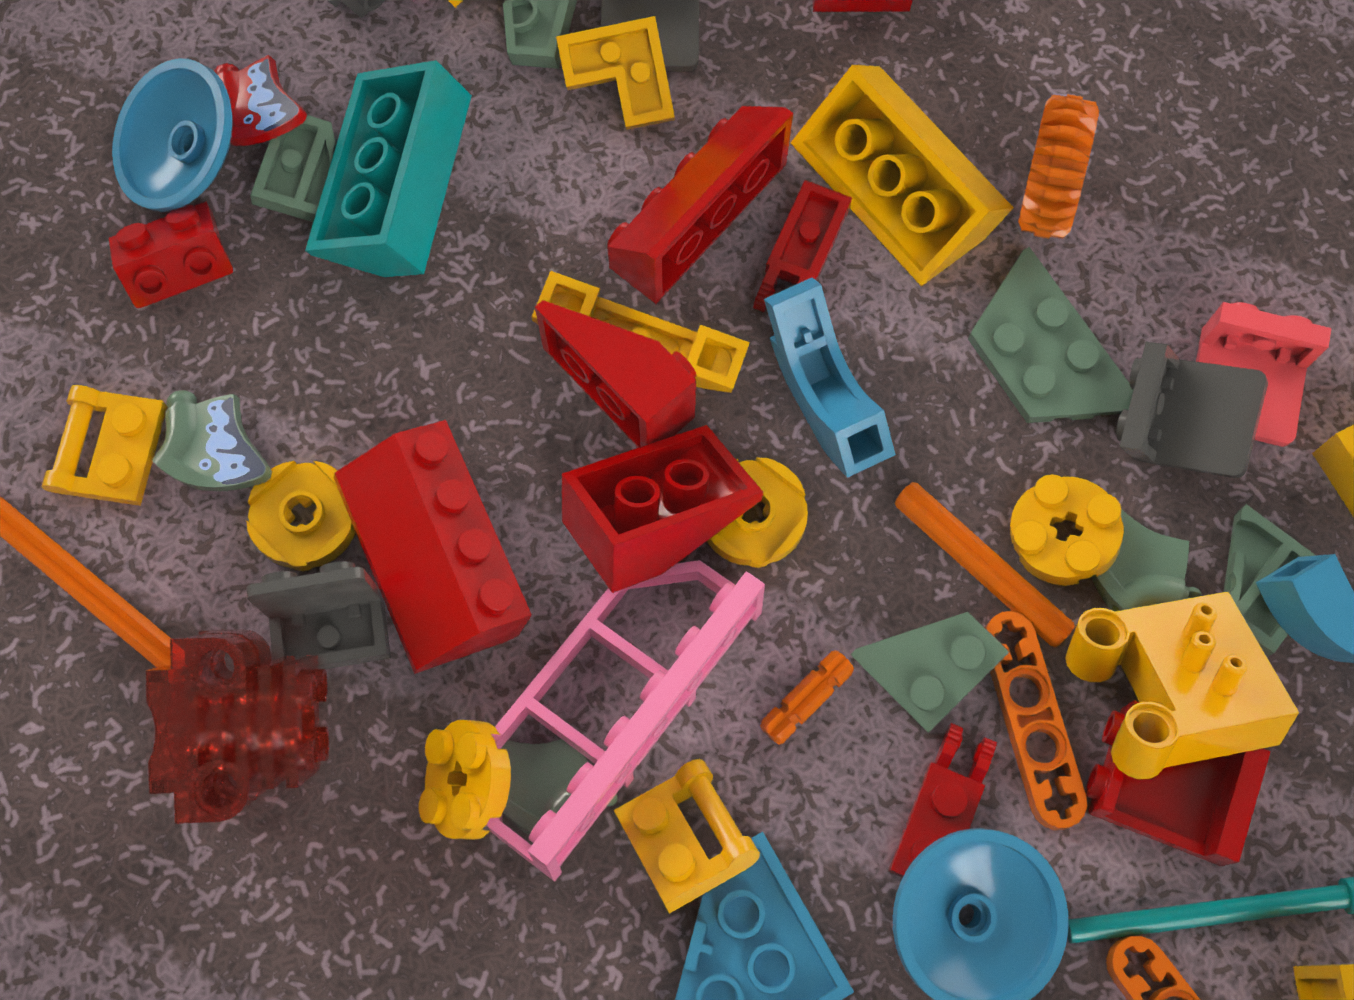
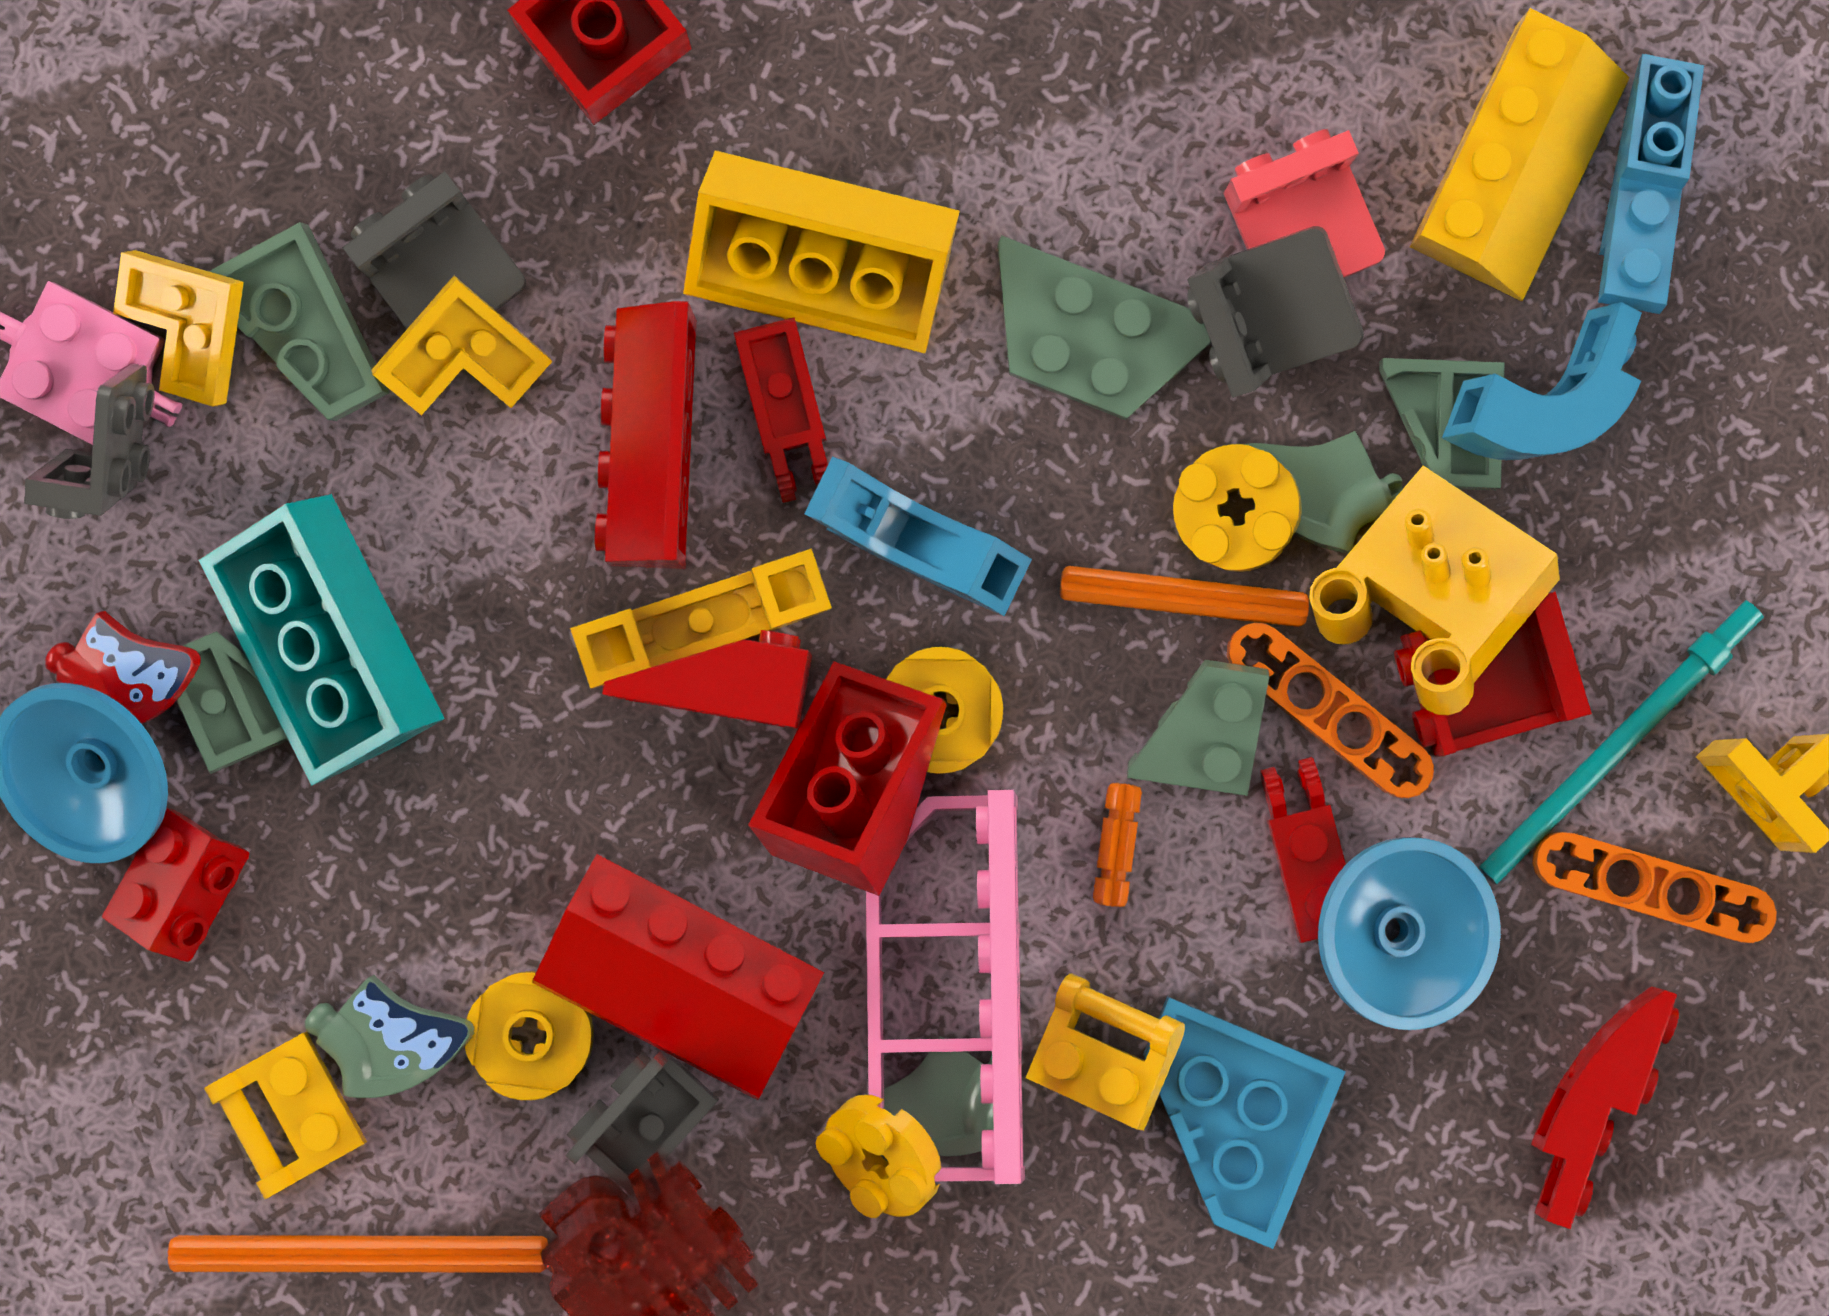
camera: 40 degrees left, 15 degrees up
(1058, 166) = (976, 146): orange gear -> none

